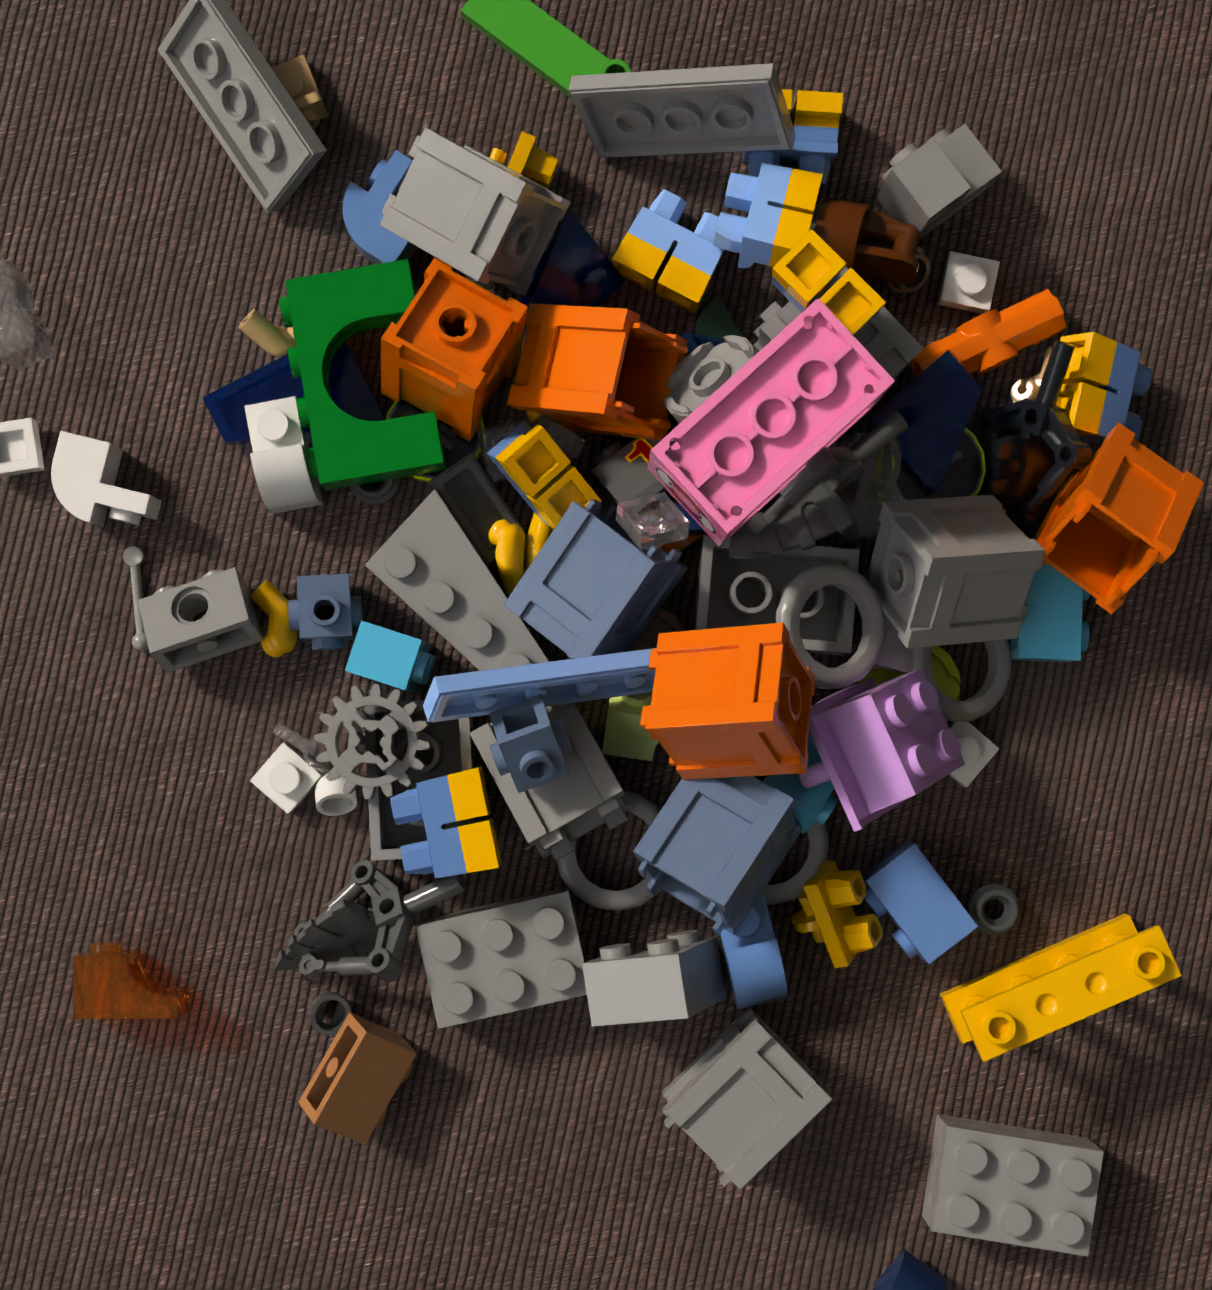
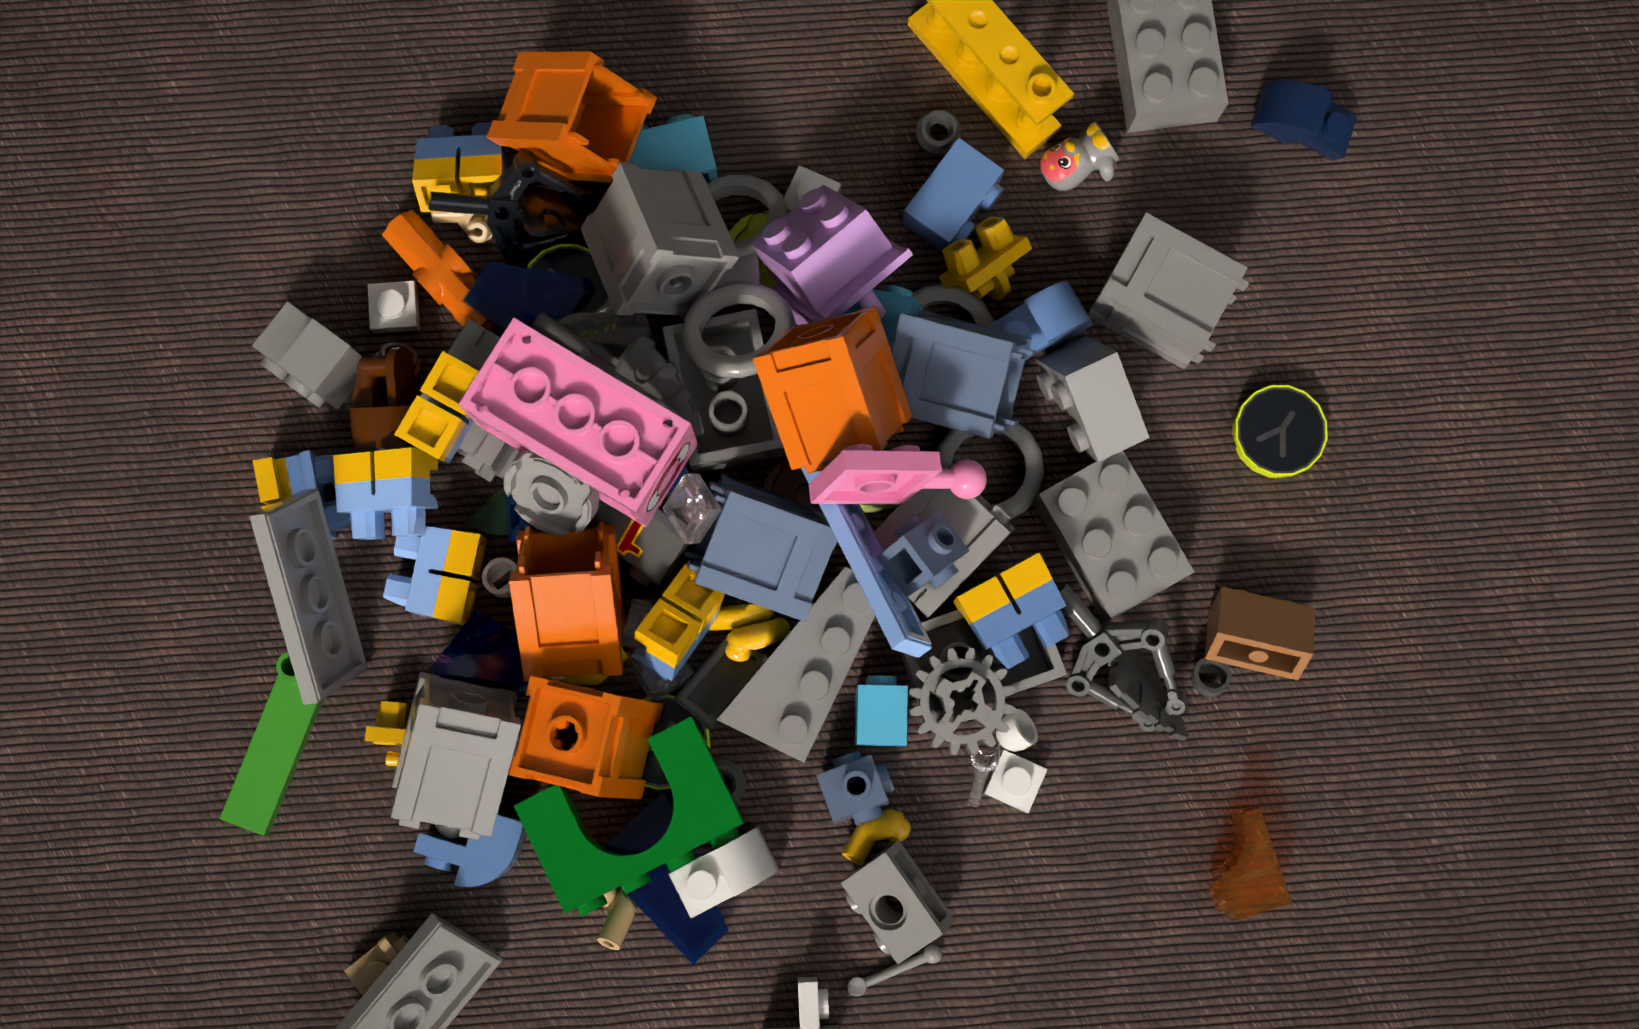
camera: 110 degrees left, 5 degrees down
(564, 1171) = (1279, 431): none -> black tile
(616, 740) = (892, 476): none -> bright pink plate
(655, 309) = (496, 574): none -> white hinge
(920, 1044) = (1075, 159): none -> animal

